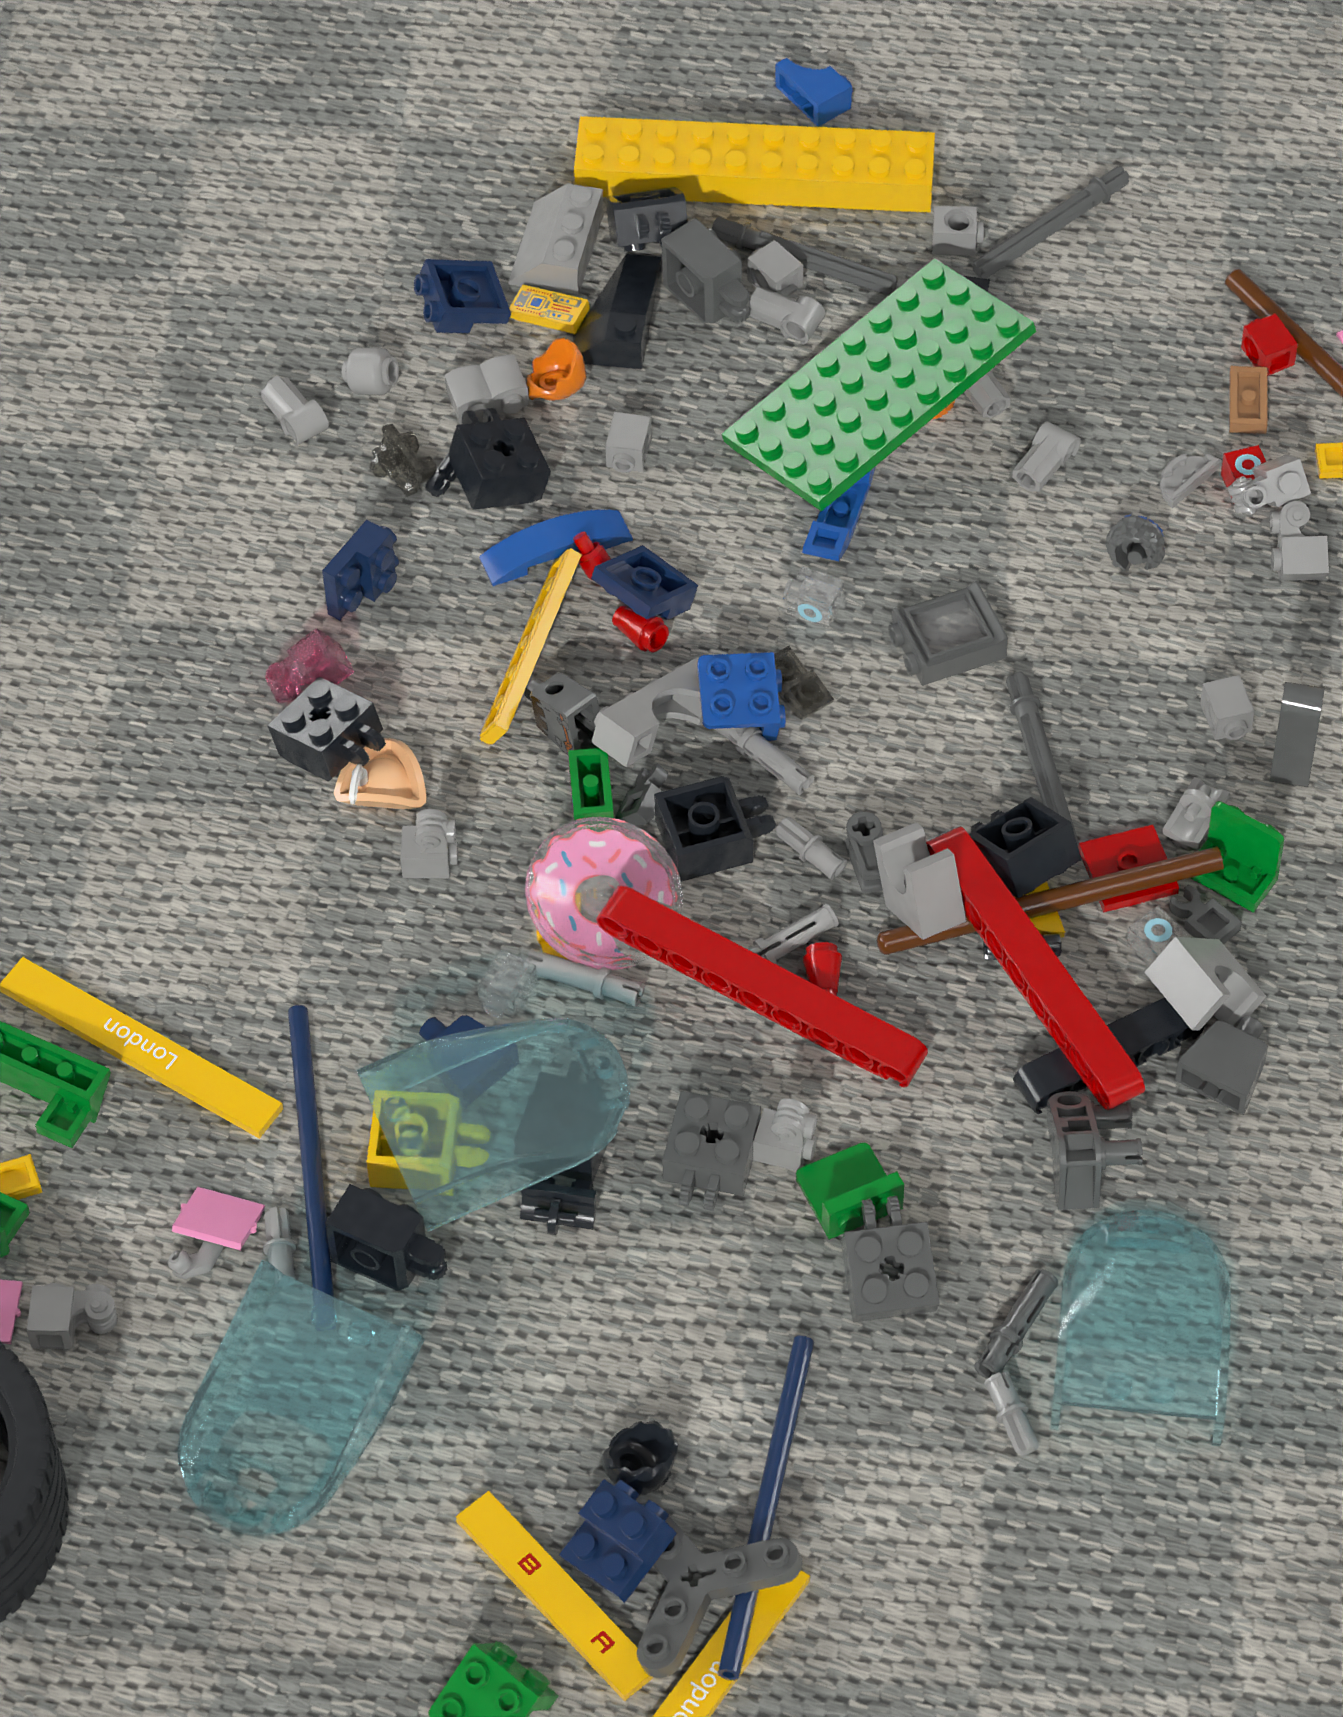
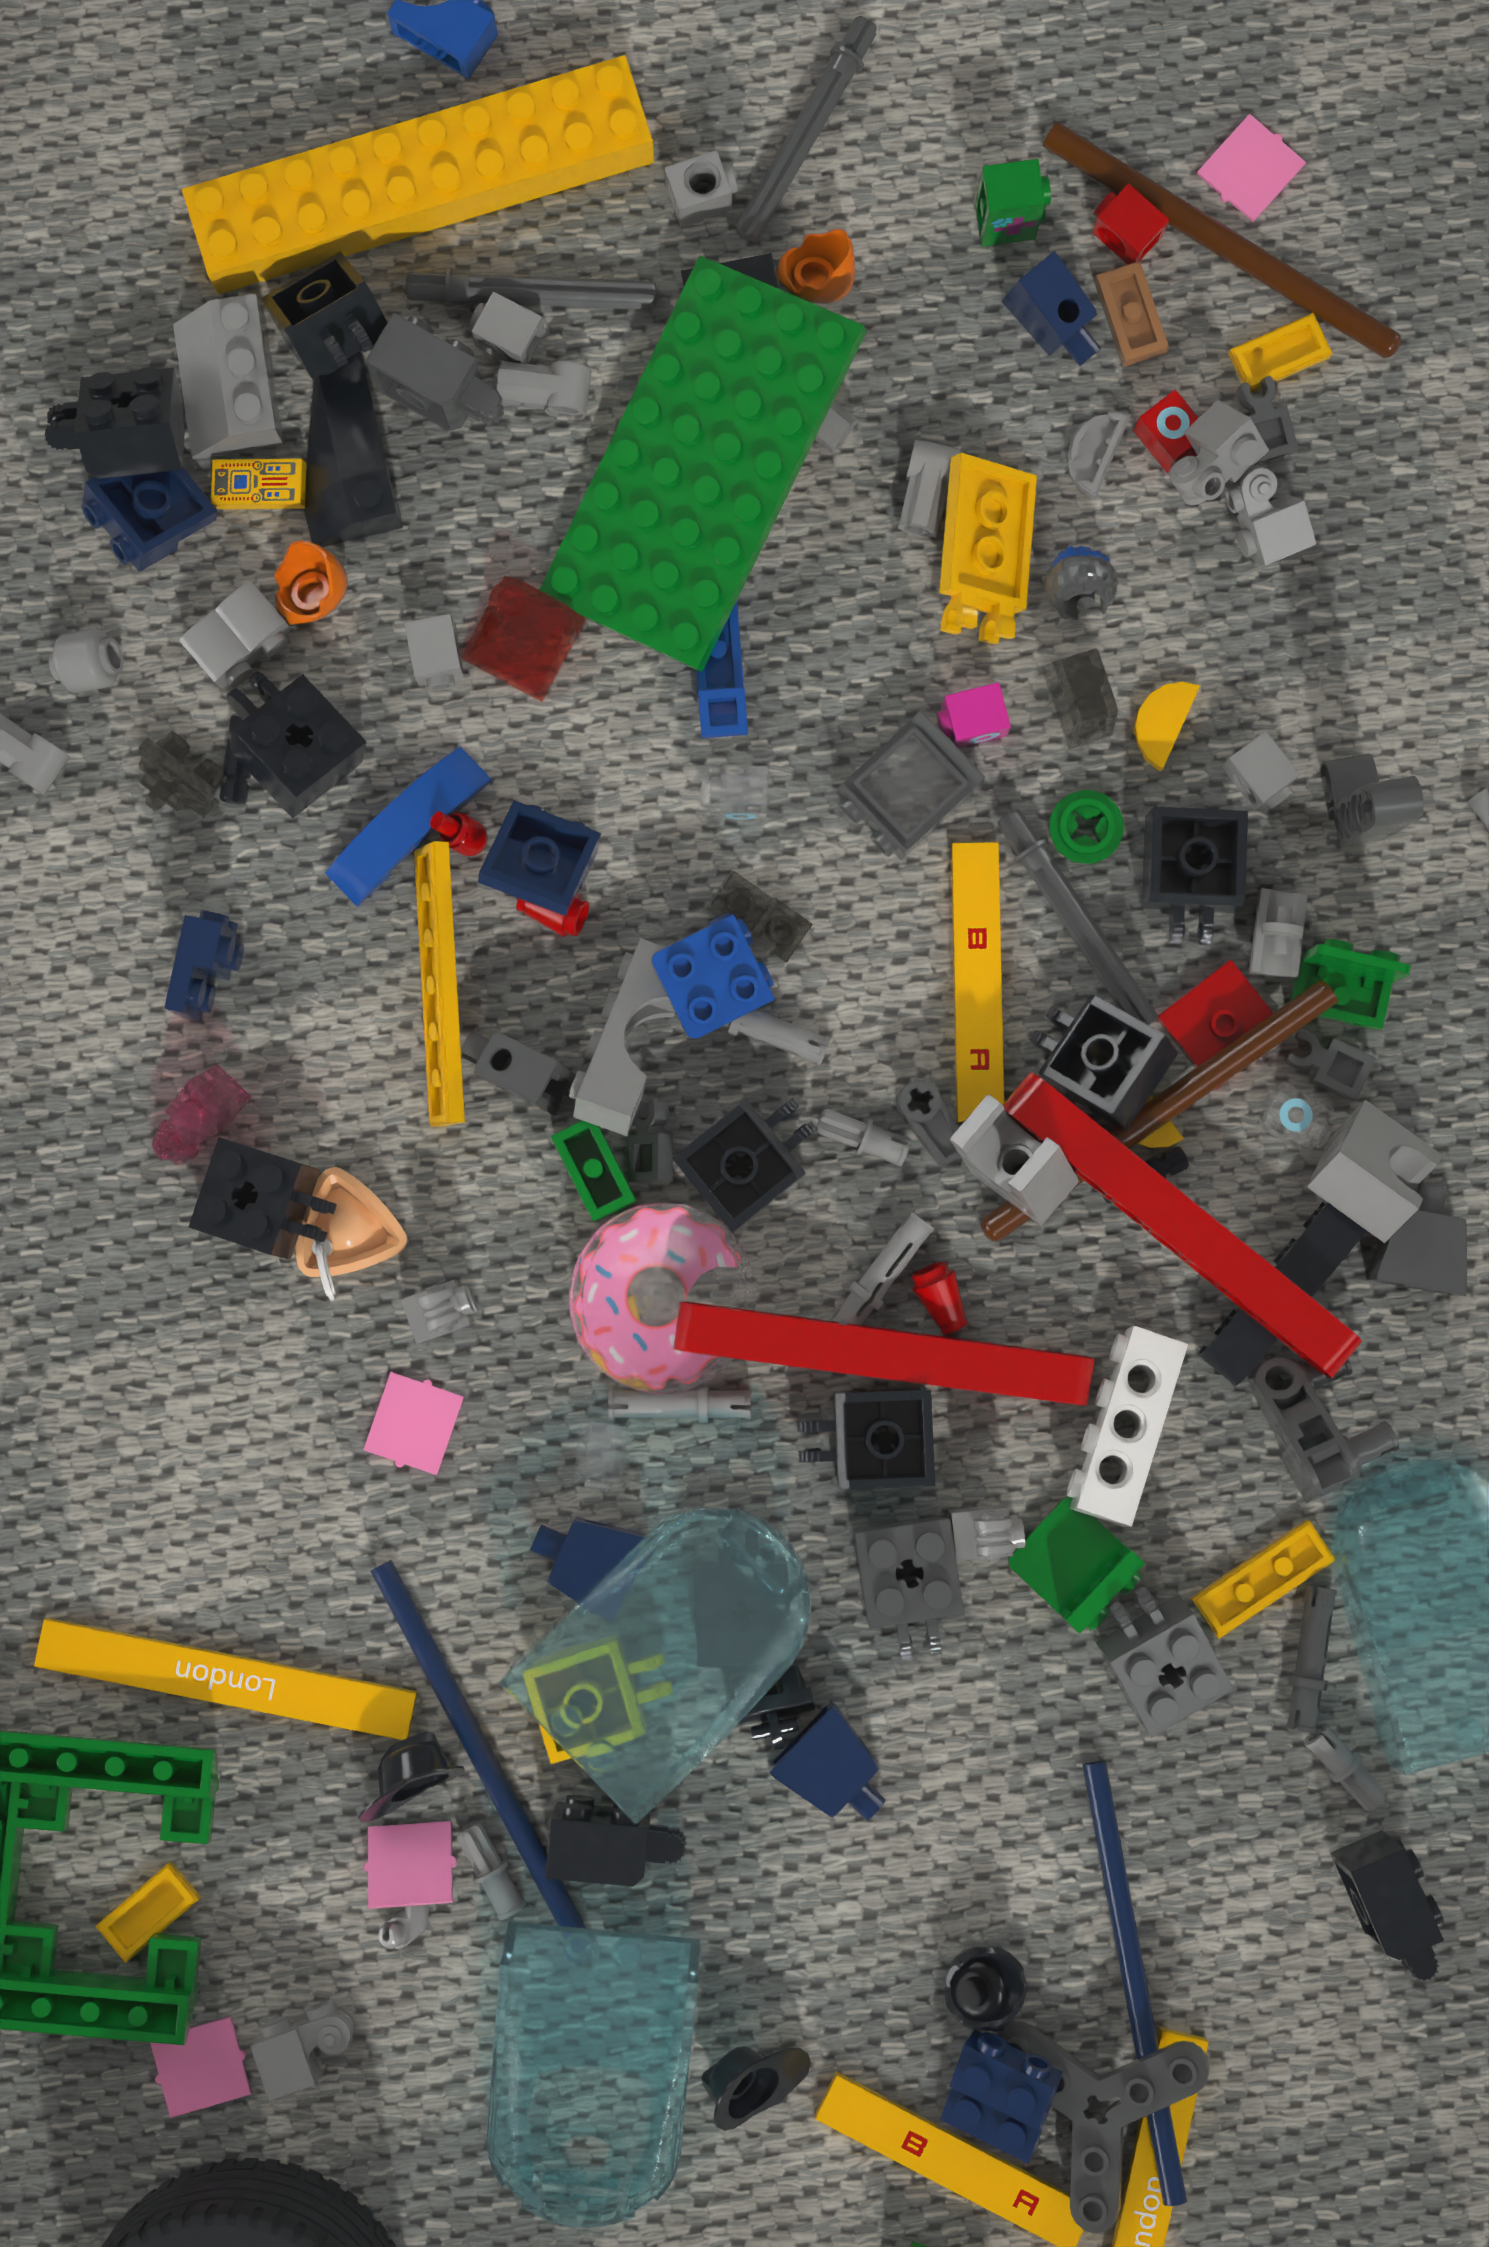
camera: 25 degrees left, 30 degrees up
(249, 1153) = (408, 1771): none -> black piece
(370, 927) = (413, 1423): none -> bright pink piece
(422, 1466) = (751, 2082): none -> black piece
(471, 235) = (123, 423): none -> black hinge
(585, 1260) = (830, 1766): none -> dark blue torso
(700, 456) = (523, 637): none -> clear red slope
(729, 1042) = (858, 1459): none -> black hinge
(952, 1097) = (1162, 1361): none -> white brick
(954, 759) = (977, 975): none -> yellow tile
(1000, 1258) = (1263, 1579): none -> yellow tile
(1007, 1503) = (1390, 1902): none -> black hinge
(1018, 604) = (974, 716): none -> dark pink brick
(1028, 298) = (820, 268): none -> orange hair
(1074, 501) = (986, 546): none -> yellow tile
(1083, 694) = (1087, 805): none -> green gear
(1105, 602) = (1081, 696): none -> clear smoke torso
(1147, 746) = (1176, 886): none -> black hinge
(1165, 656) = (1161, 720): none -> yellow tile
(1181, 298) = (1011, 202): none -> green brick
(1186, 370) = (1044, 298): none -> dark blue torso
(1325, 497) = (1271, 423): none -> dark grey plate

